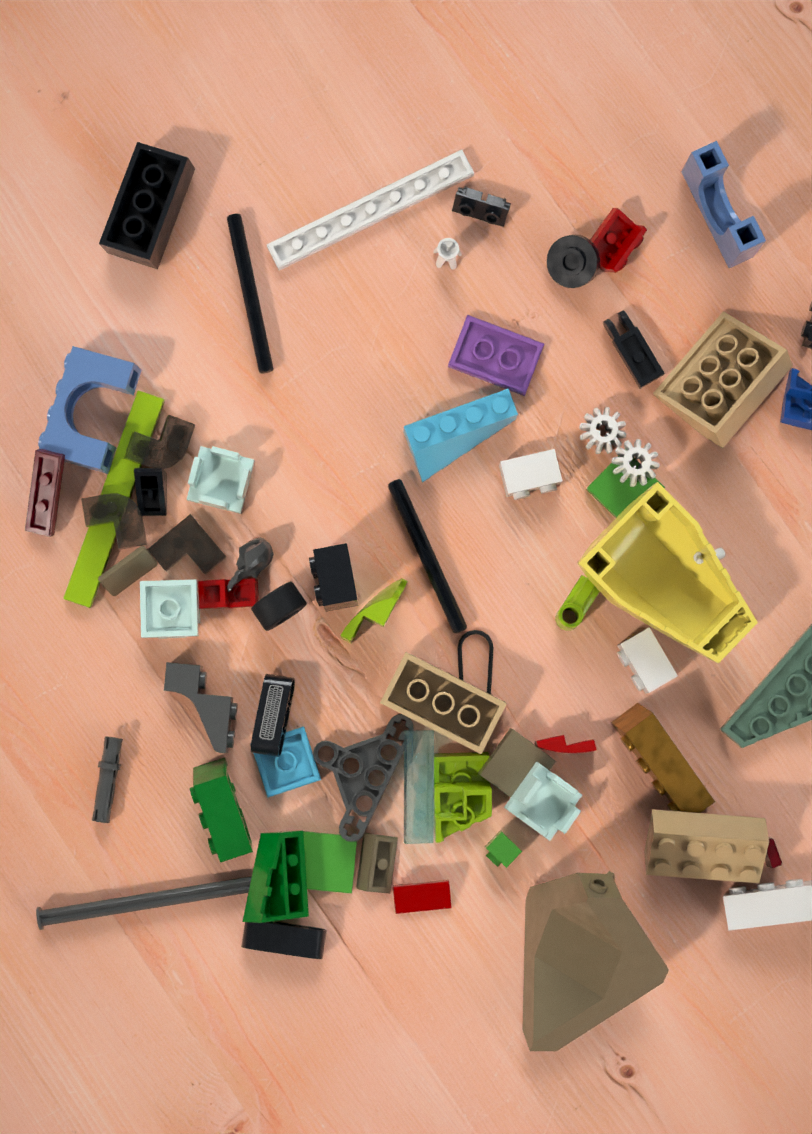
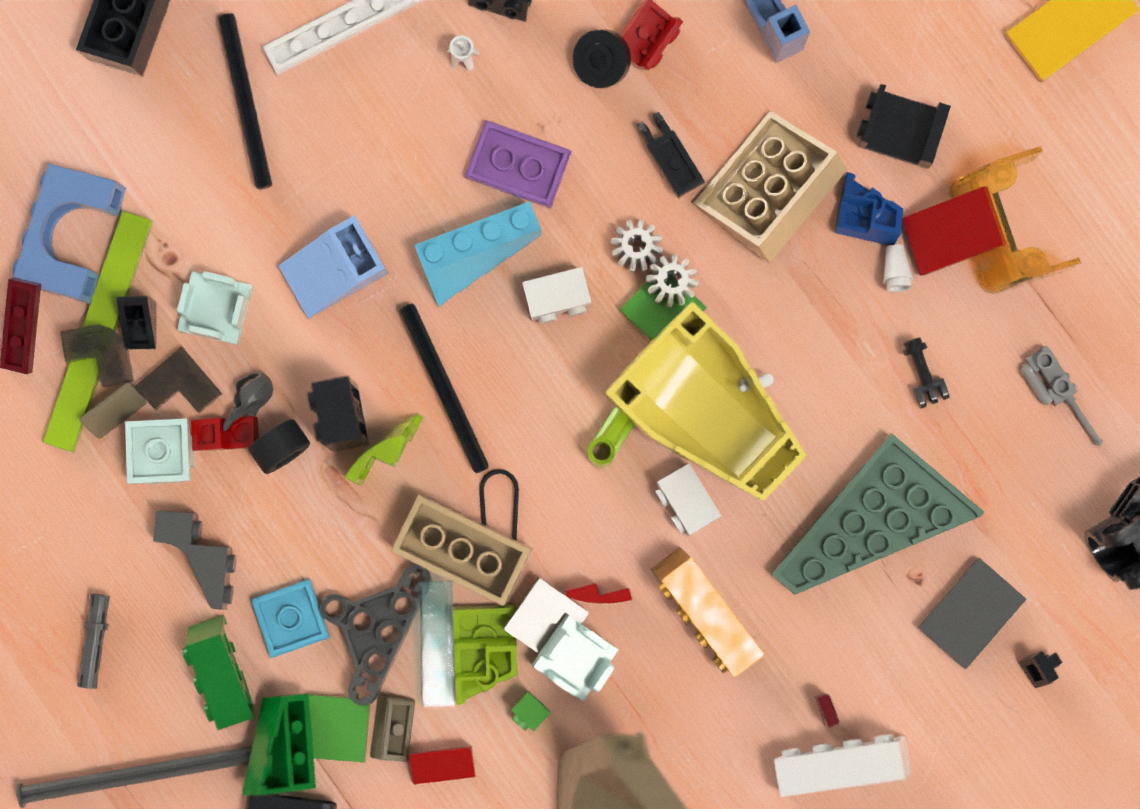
camera: 10 degrees right, 0 degrees up
(162, 452) = (149, 279): clear smoke plate -> none
(272, 715) = (274, 567): black beam -> none
(328, 445) = (332, 267): none -> light blue slope
(706, 846) = (754, 704): tan brick -> none

